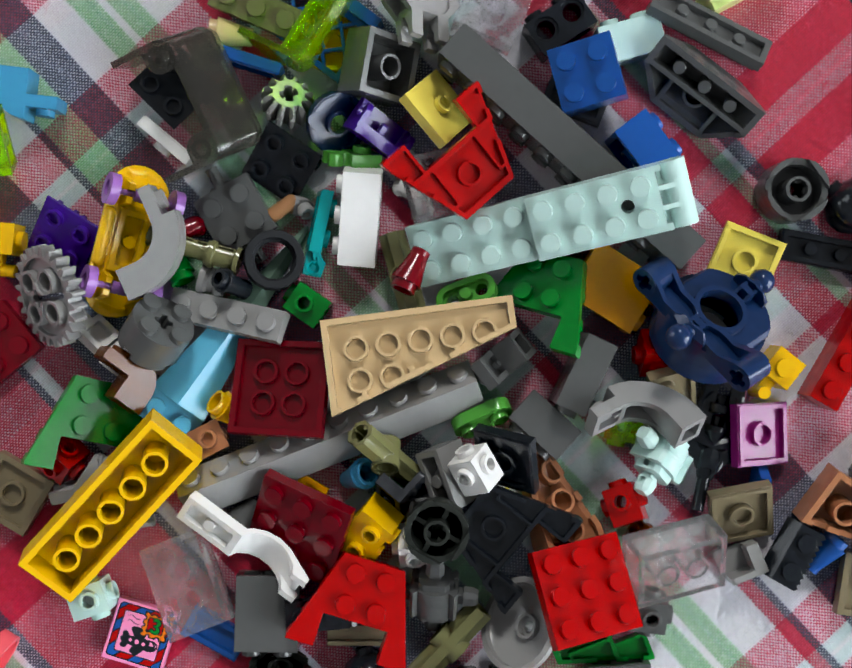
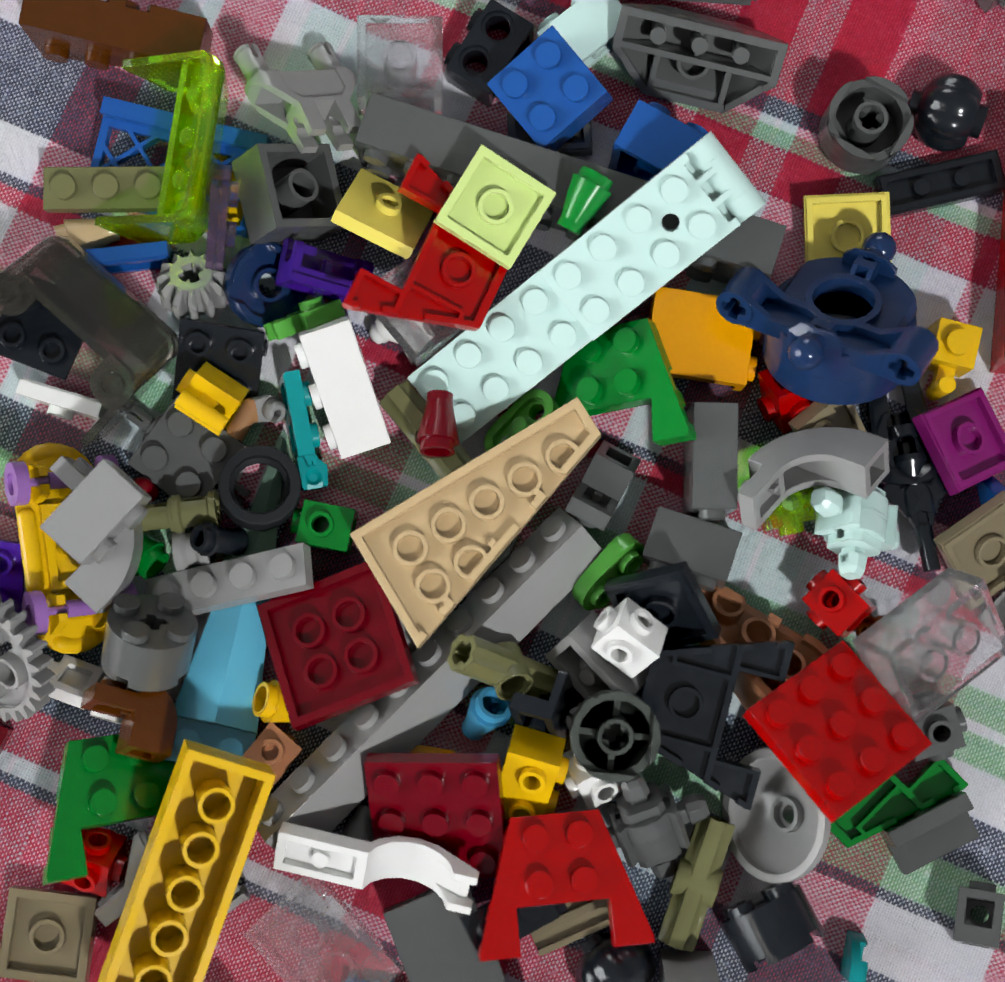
camera: 20 degrees left, 5 degrees down
(155, 235) = (97, 513): none -> light grey brick
(266, 184) = (209, 397): none -> yellow brick
(321, 72) = (221, 231): none -> clear purple plate
(513, 142) = (494, 207): none -> yellowish green plate
(576, 163) = (584, 198): none -> green cone

